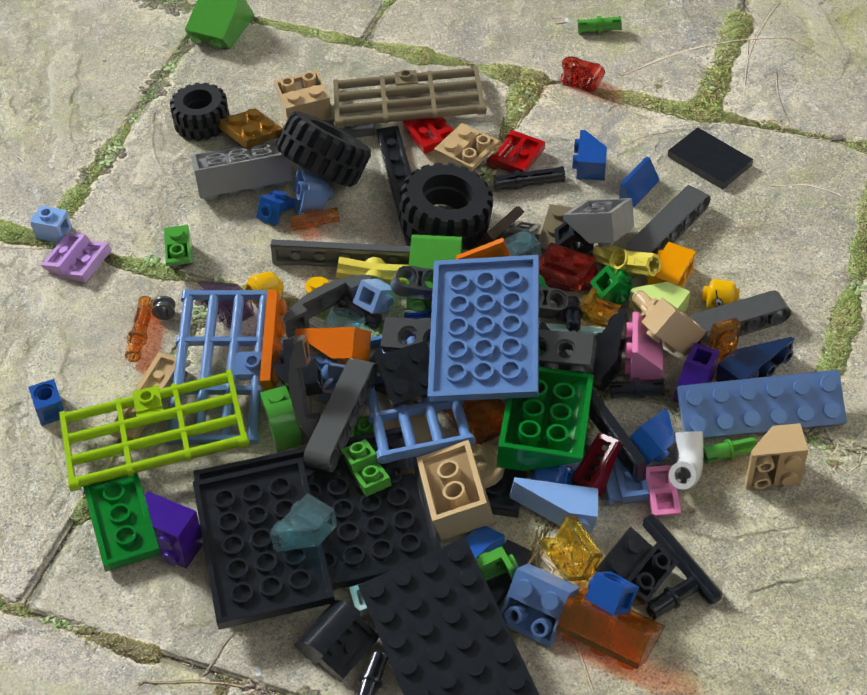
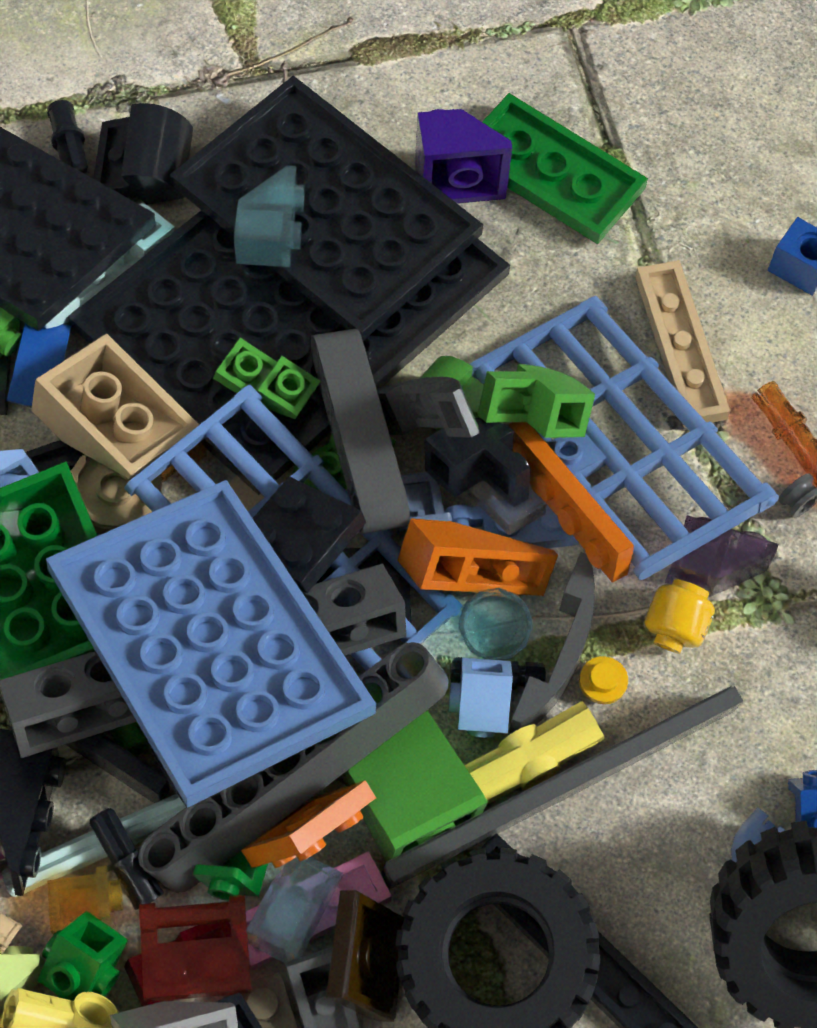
camera: 140 degrees right, 15 degrees up
(148, 411) = (639, 297): lime door -> none
(246, 374) = (541, 397): none -> bright green brick
(314, 218) = (726, 821): clear orange pin -> none

